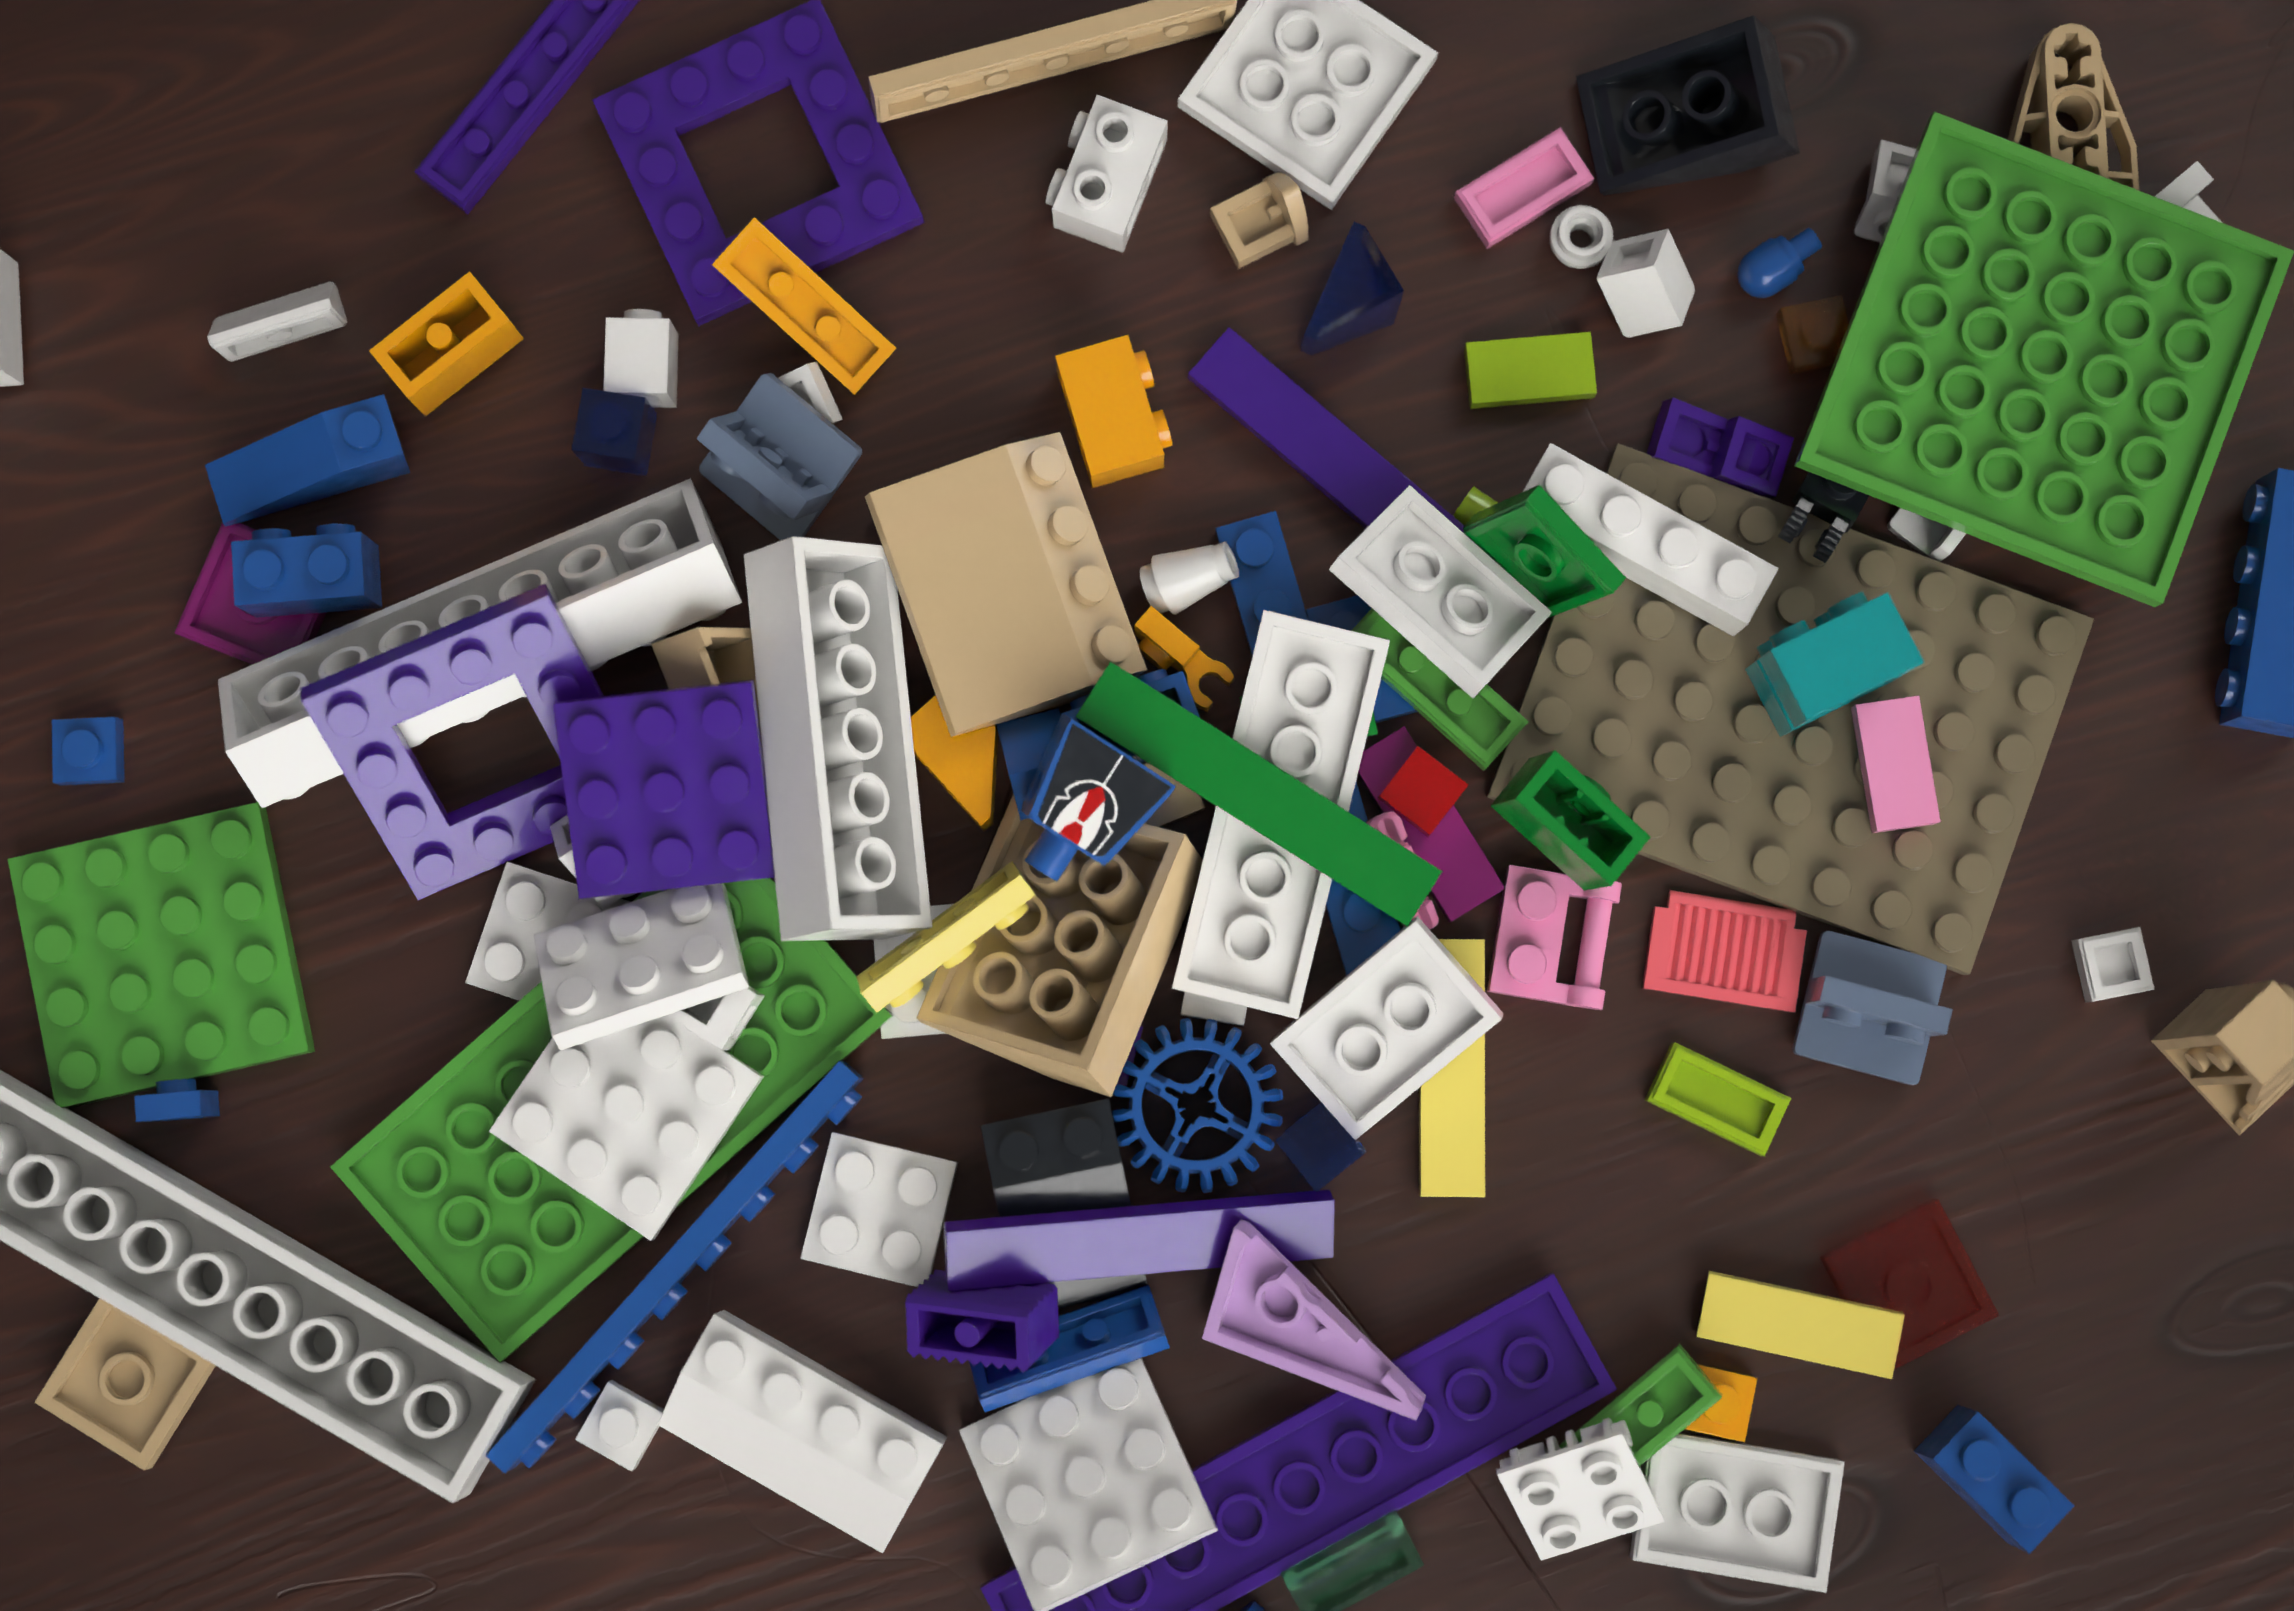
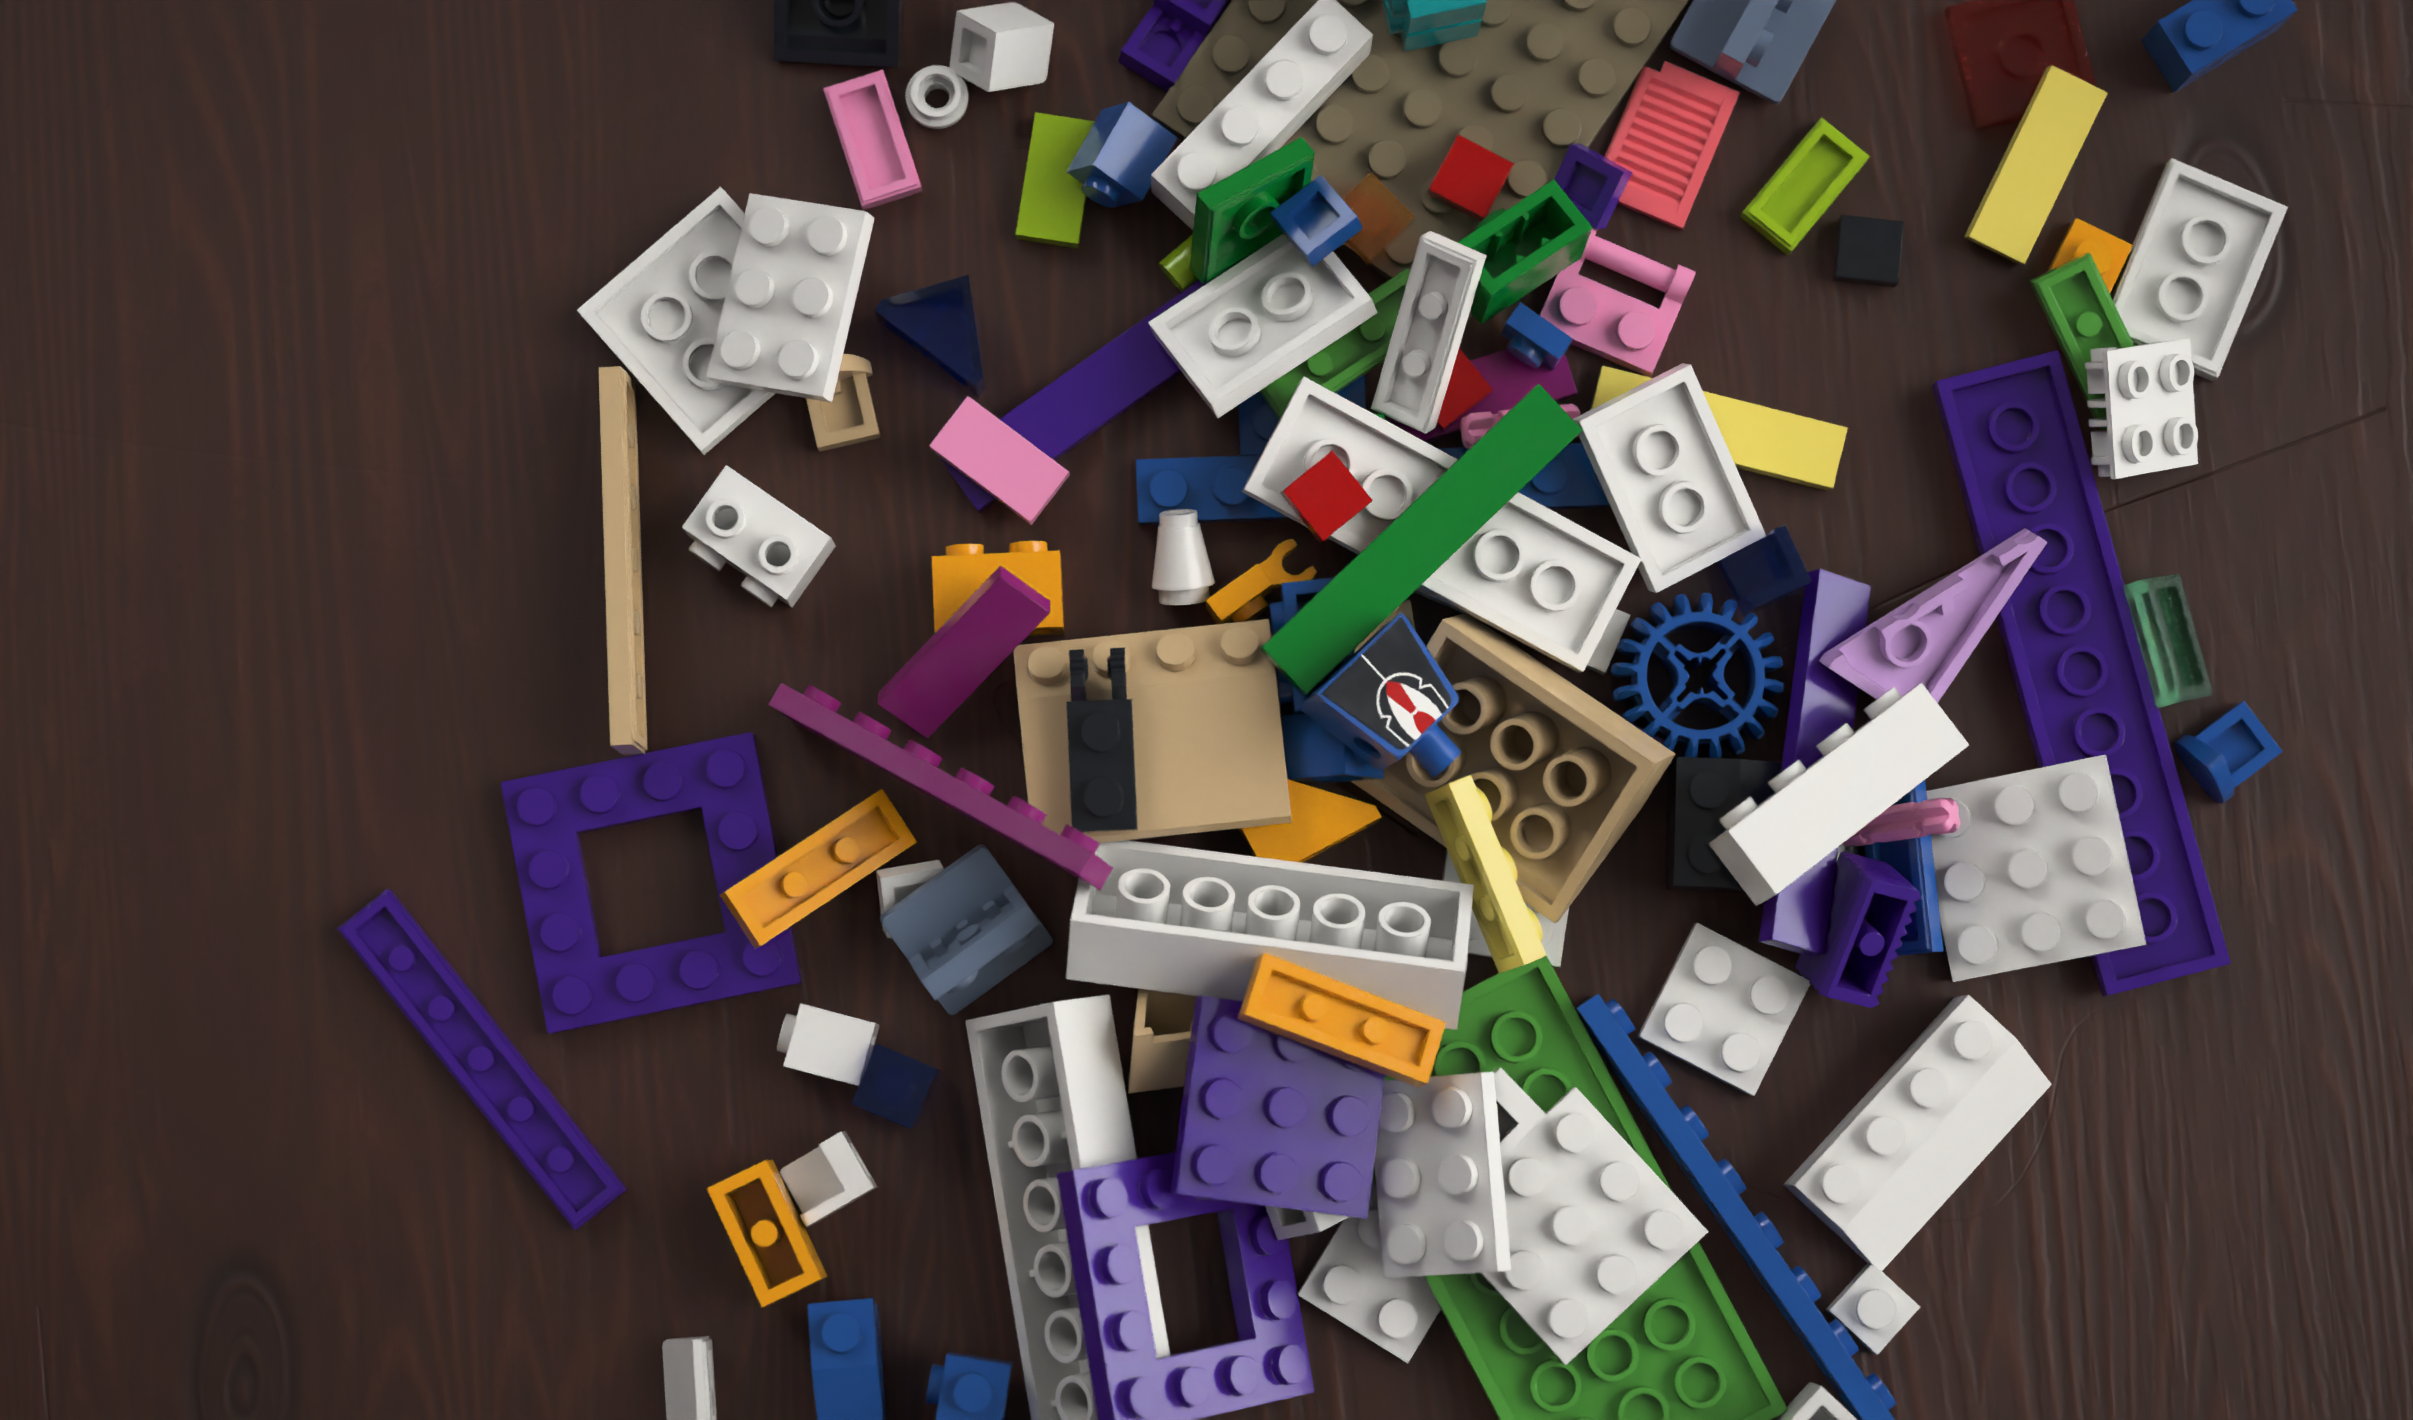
camera: 80 degrees left, 0 degrees up
(517, 394) = (827, 1178): none -> white panel
(757, 822) = (1341, 1020): none -> light orange plate
(899, 413) = (964, 793): none -> magenta plate
(974, 532) = (1101, 750): none -> black hinge
(1043, 388) = (964, 652): none -> magenta tile
(1098, 1336) = (1909, 822): none -> bright pink axle
(1106, 1264) = (1838, 793): none -> white brick
(1239, 379) = (999, 460): none -> bright pink tile
(1275, 689) = (1326, 496): none -> red tile
(1344, 139) = (790, 297): none -> white plate
(1467, 751) = (1428, 331): none -> white tile
(1489, 862) = (1534, 338): none -> blue plate
(1549, 617) = (1316, 220): none -> blue plate
(1568, 417) = (1120, 155): none -> blue brick
(1568, 674) = (1380, 215): none -> clear orange plate
(1634, 762) = (1470, 178): none -> red tile
(1659, 882) = (1592, 183): none -> dark purple plate
(1669, 1177) = (1868, 250): none -> black tile

